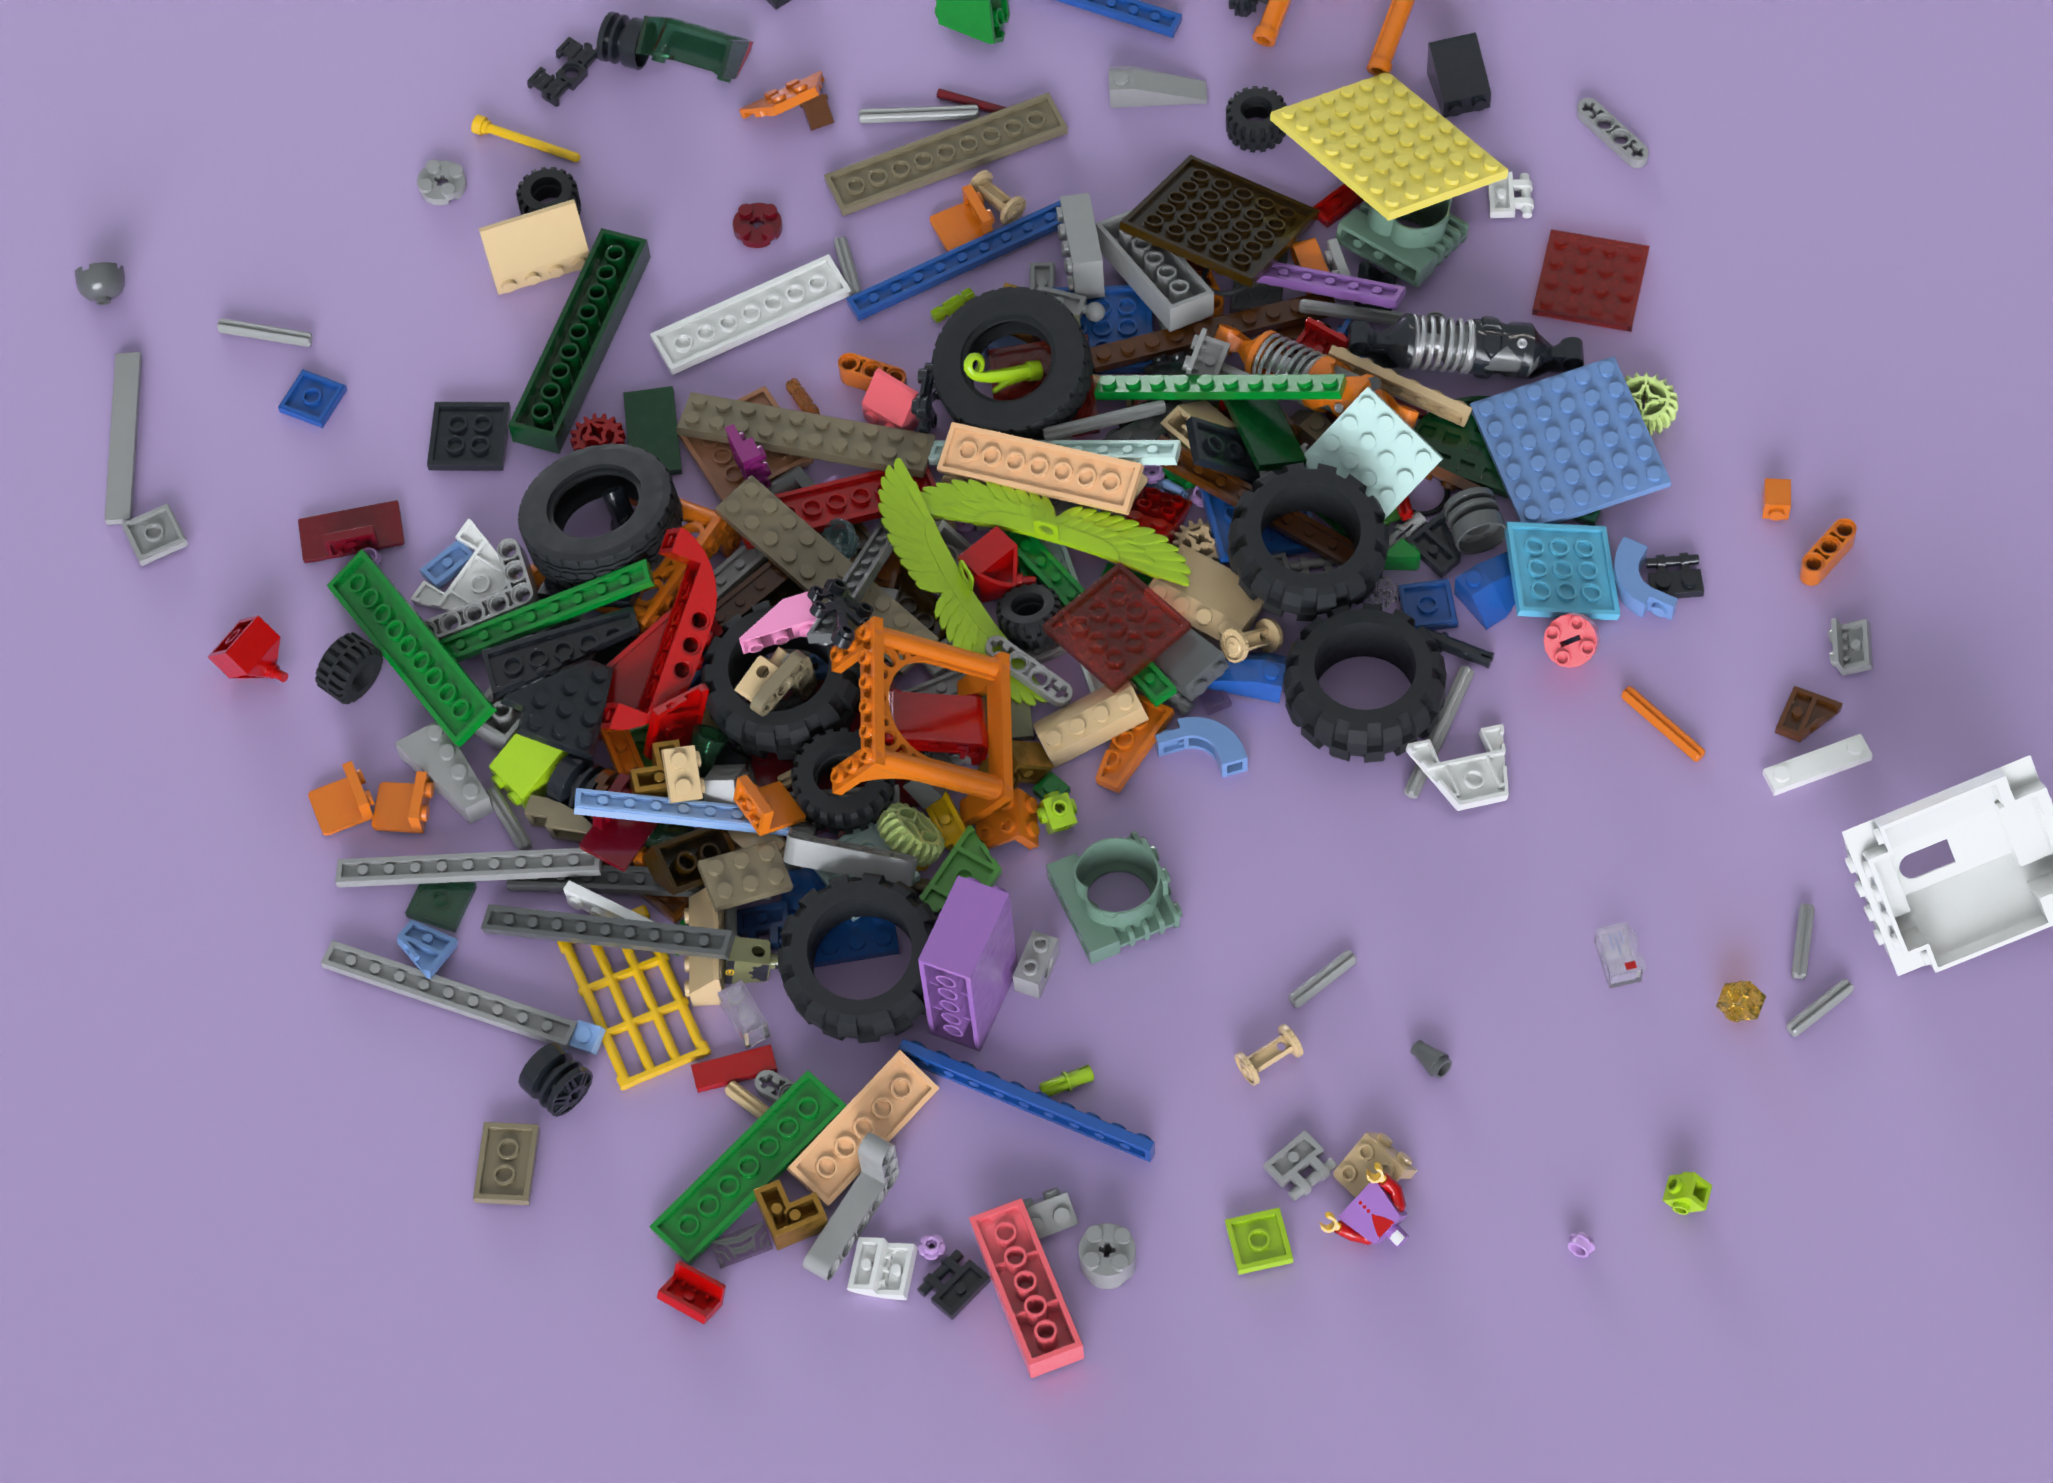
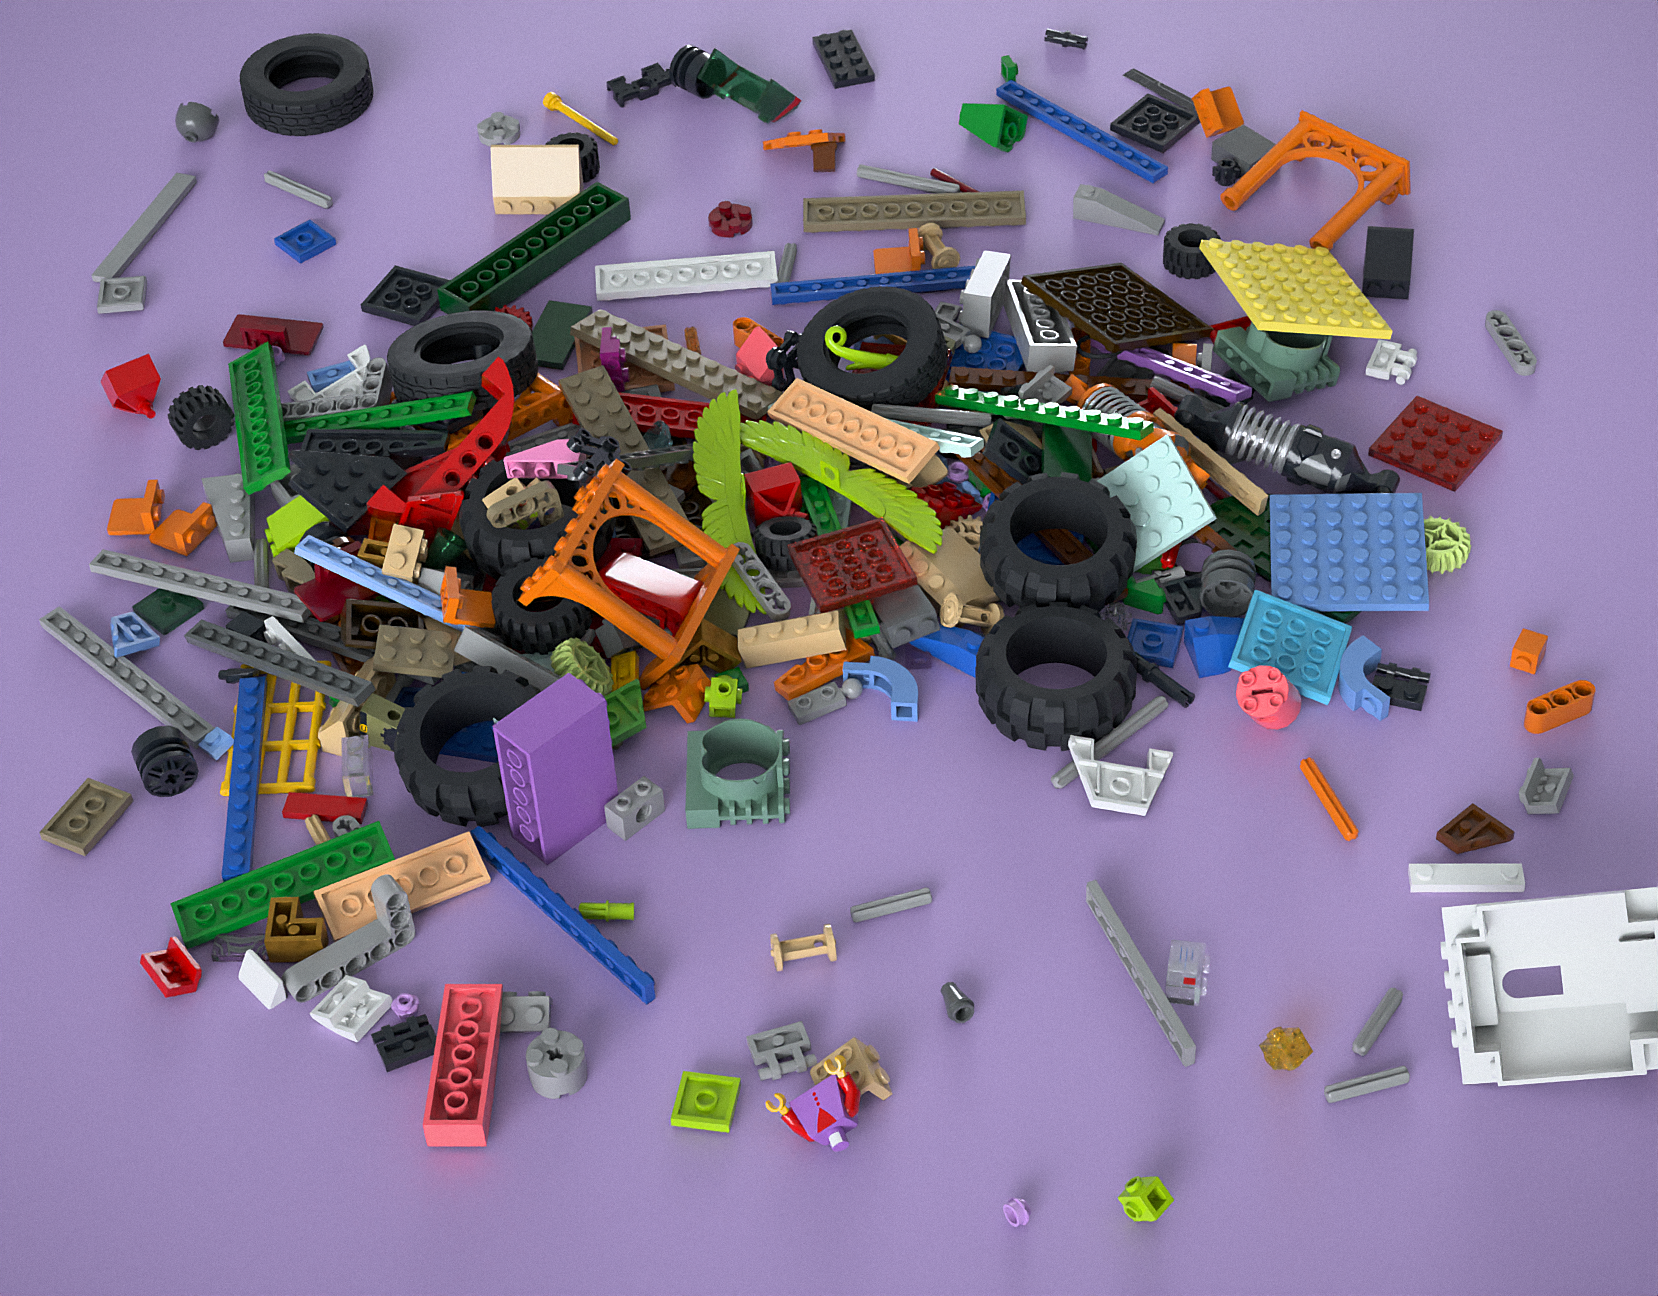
camera: 20 degrees right, 15 degrees down
(211, 231) = (311, 110): none -> black tyre
(545, 898) = (248, 625): none -> black brick
(563, 954) = (234, 674): none -> black bar
(640, 1066) = (244, 778): none -> blue plate
(782, 1272) = (261, 980): none -> white slope
(1150, 780) = (823, 700): none -> light grey plate
(1578, 969) = (1140, 974): none -> light grey tile

